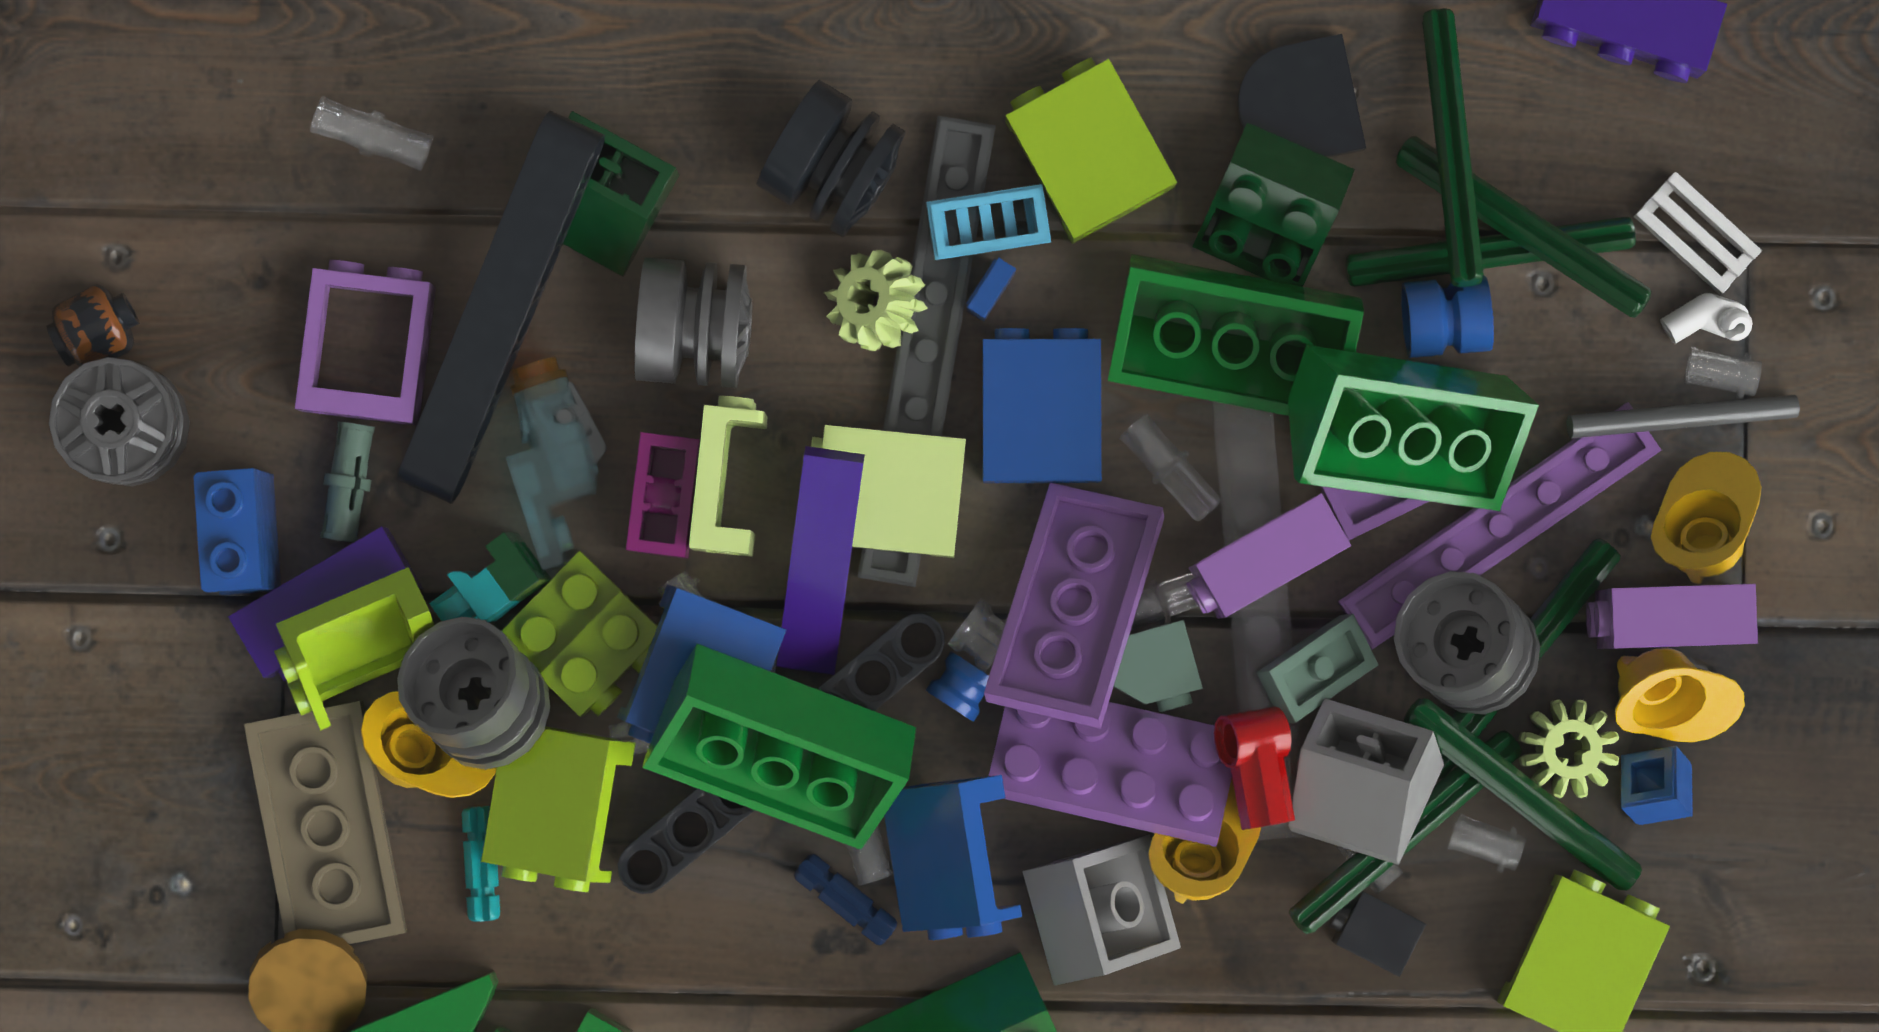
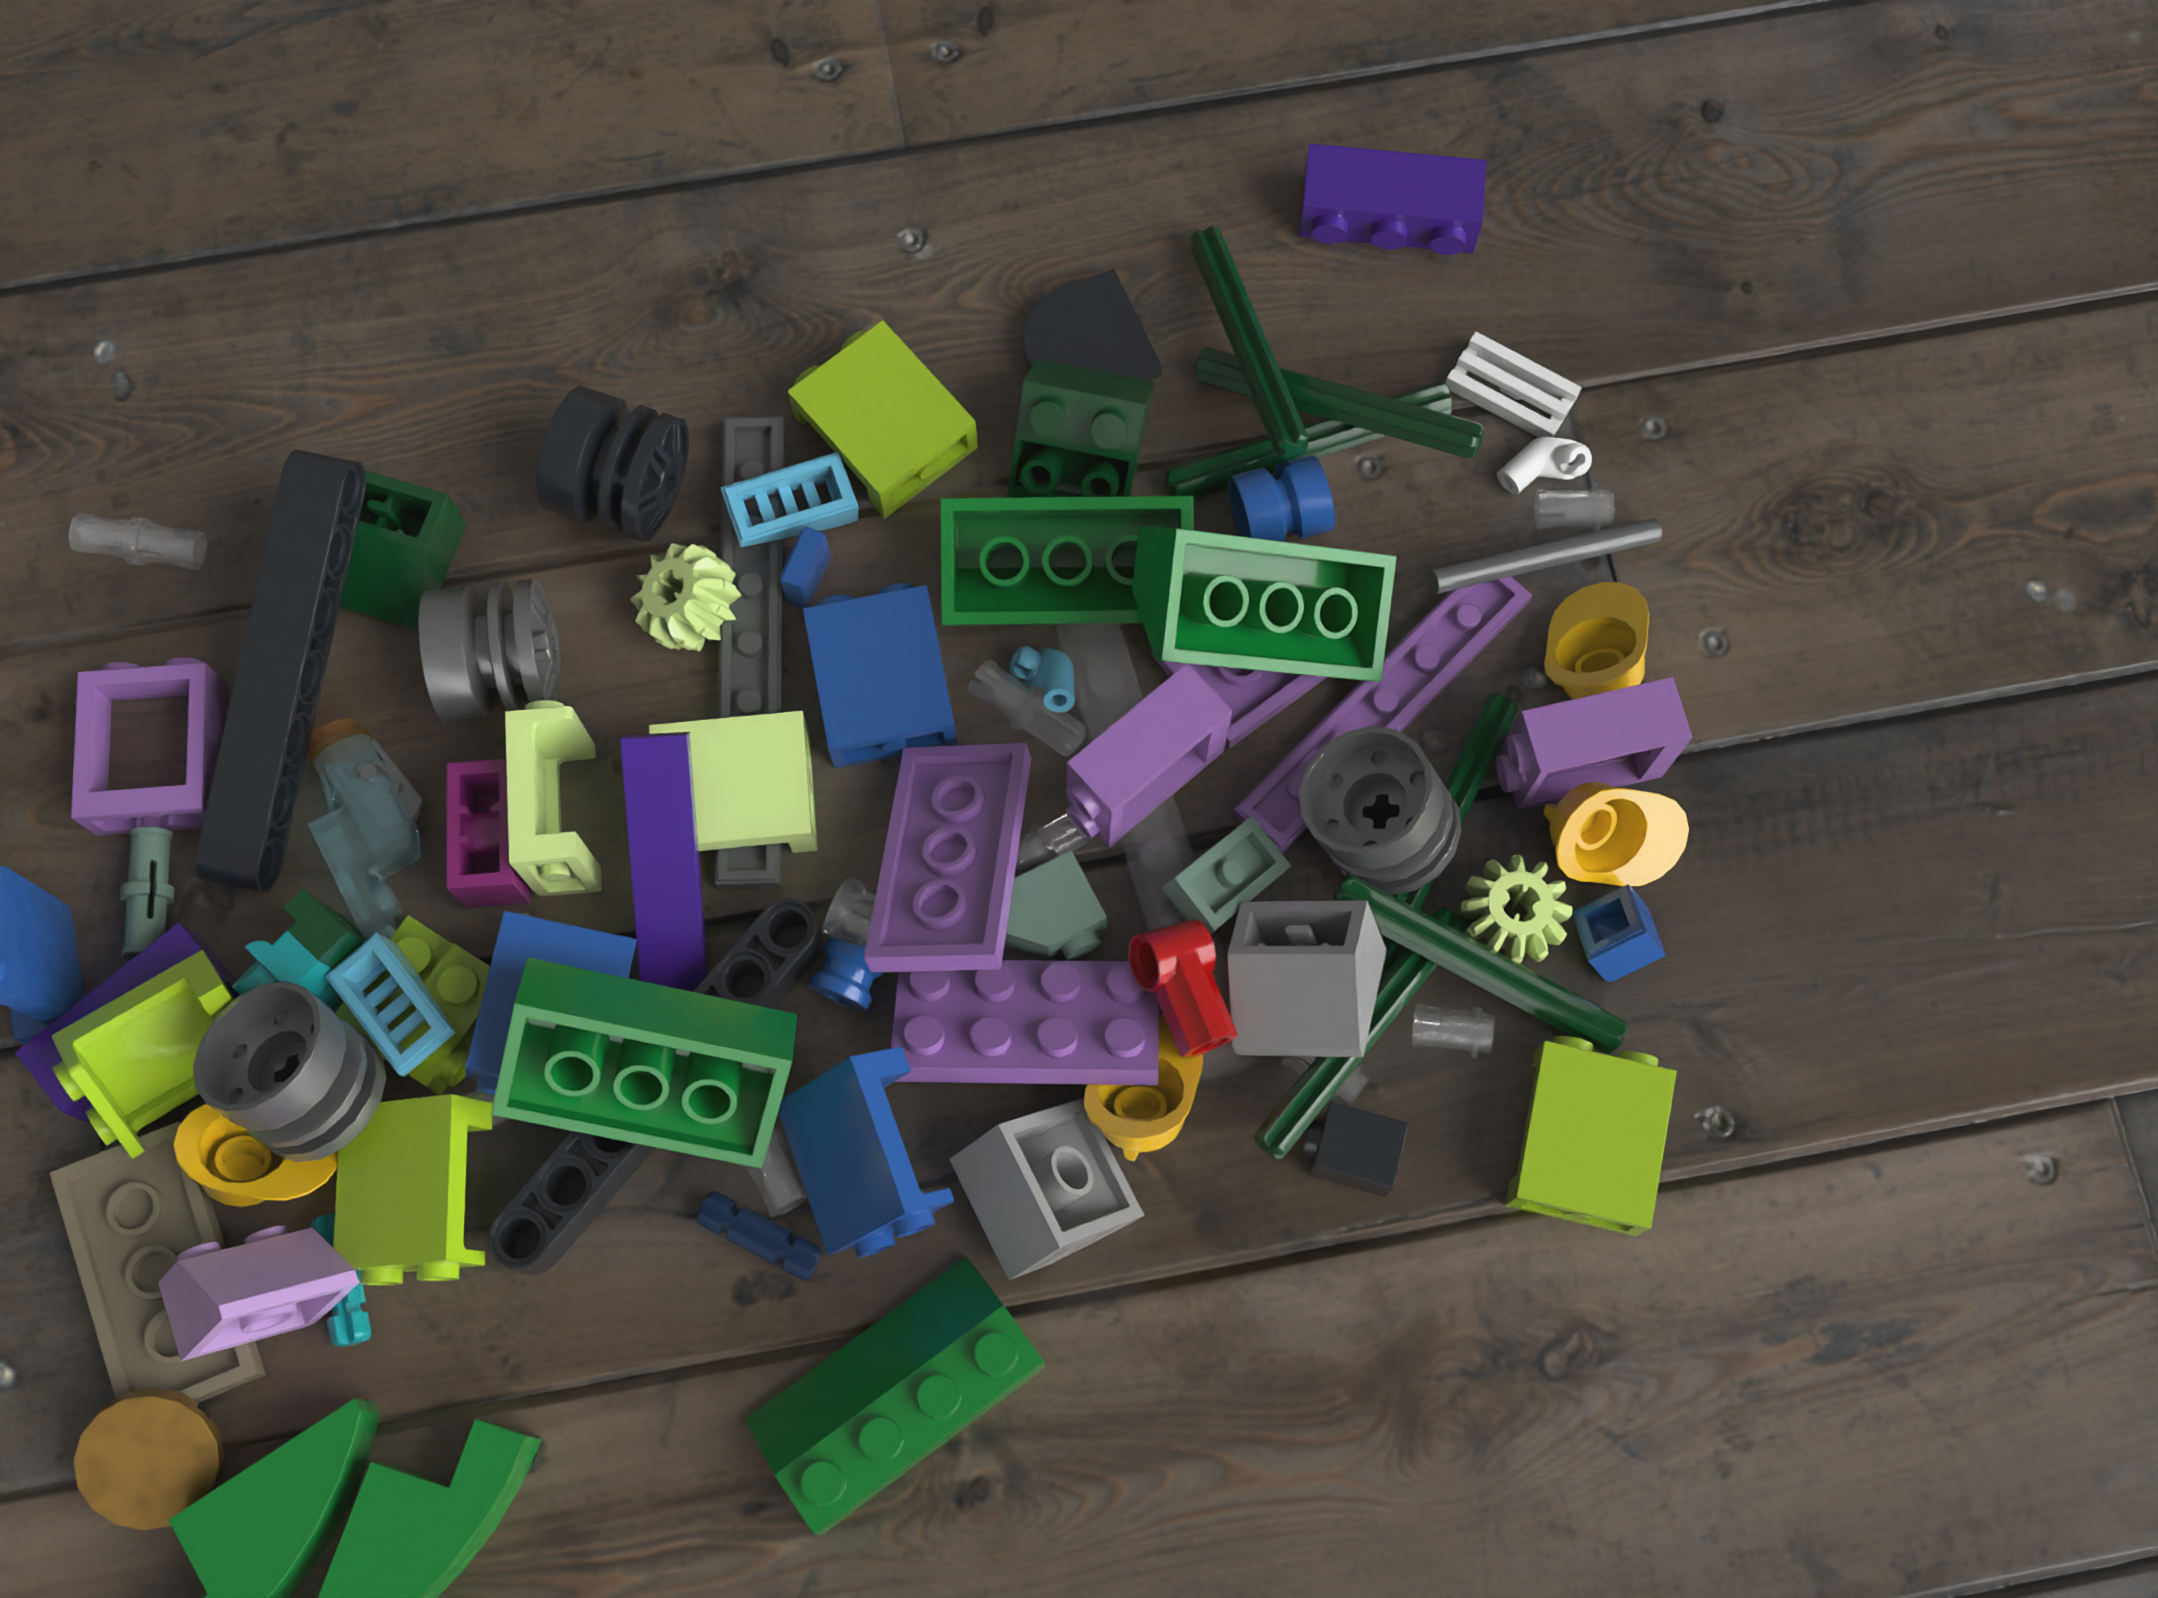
camera: 10 degrees left, 15 degrees down
(416, 865) = (252, 1289): none -> lavender slope
(539, 602) = (362, 969): none -> medium azure slope
(1197, 437) = (1050, 671): none -> medium azure arm

